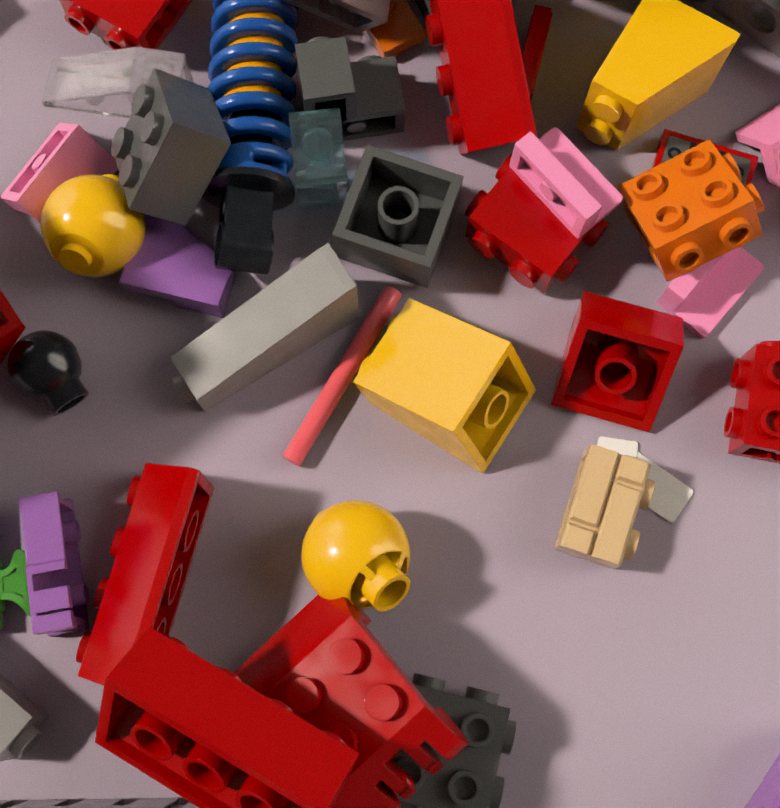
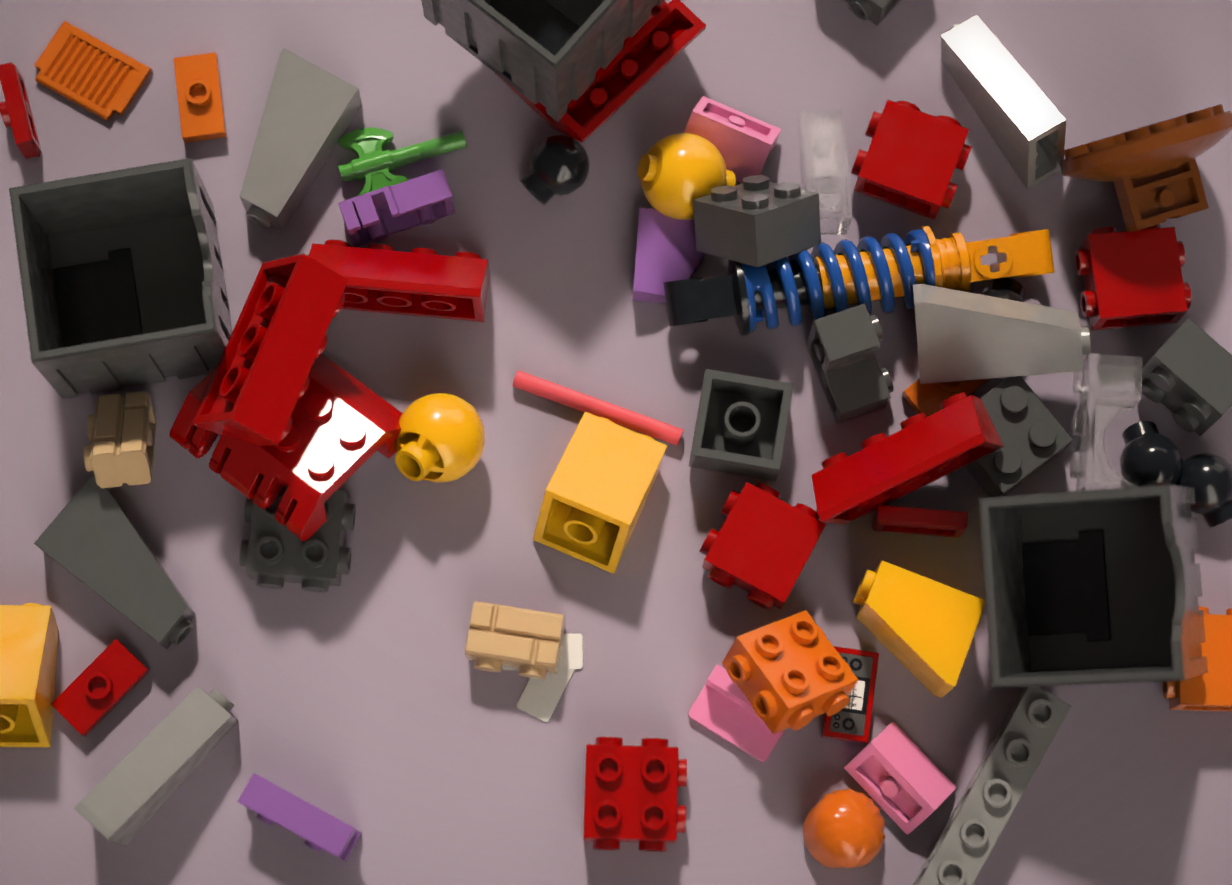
camera: 80 degrees right, 0 degrees up
(268, 329) = (618, 335): light grey slope -> none
(319, 158) = (780, 347): clear light blue slope -> none
(564, 180) = (792, 557): bright pink panel -> none
(618, 361) = (648, 634): red slope -> none

